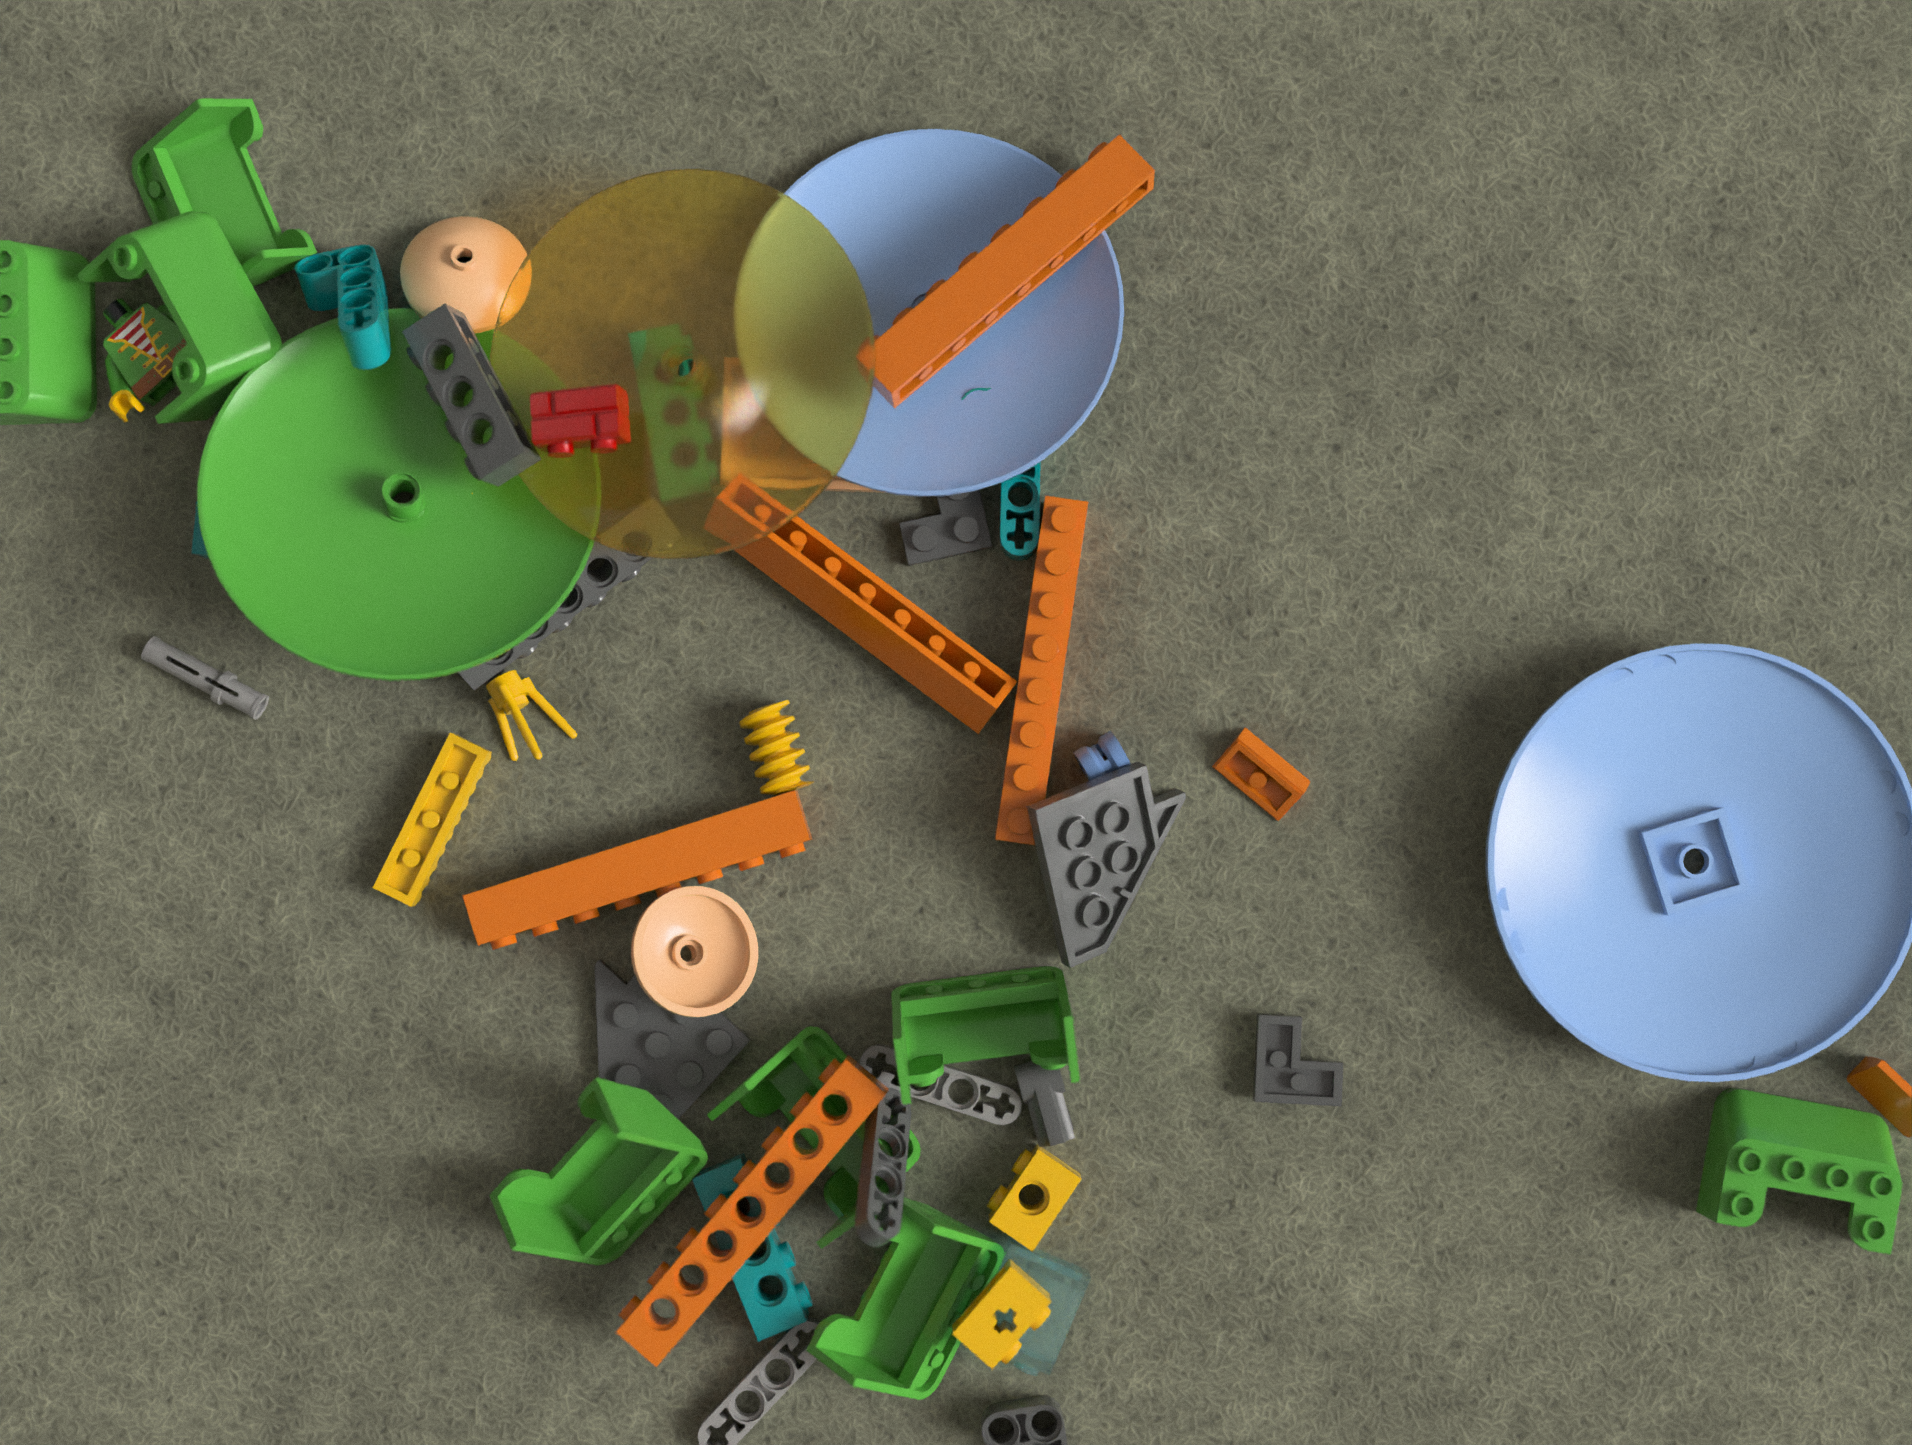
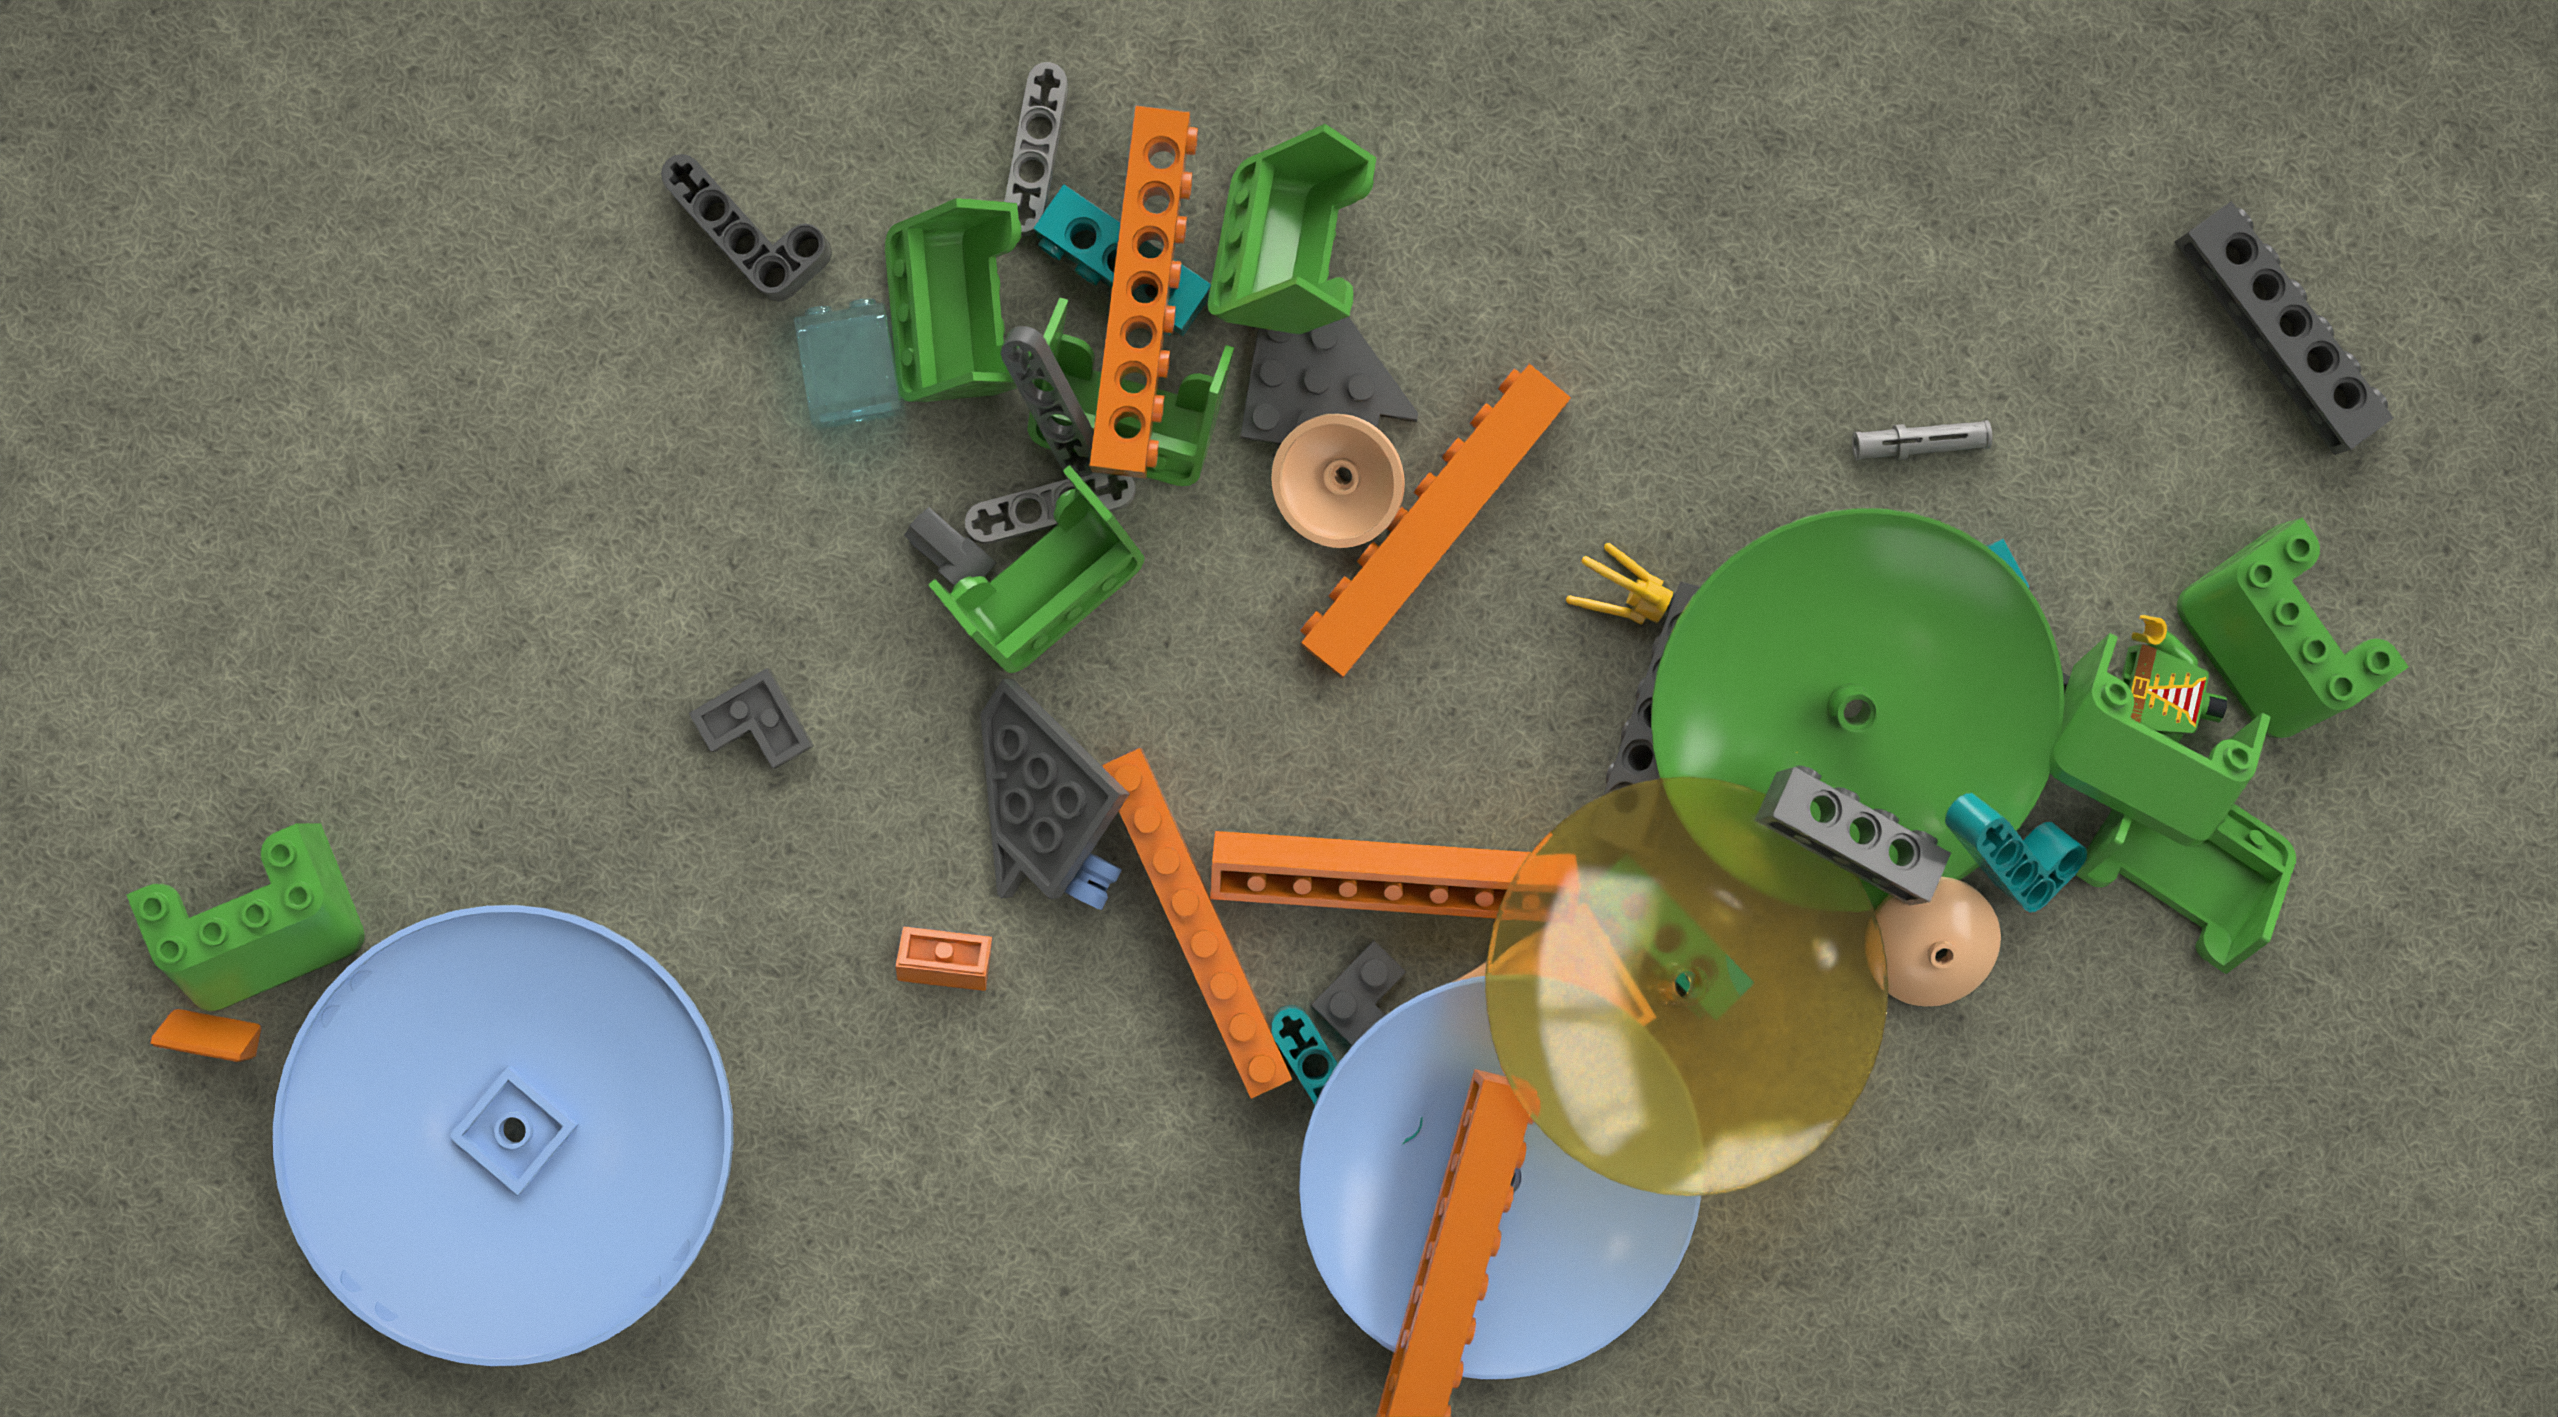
camera: 145 degrees right, 0 degrees up
(432, 820) = (1641, 446): yellow gear -> none
(580, 419) = (1742, 876): red brick -> none
(775, 749) = (1384, 701): yellow piece -> none
(978, 1323) = (883, 321): yellow brick -> none
(1030, 1222) = (895, 437): yellow brick -> none

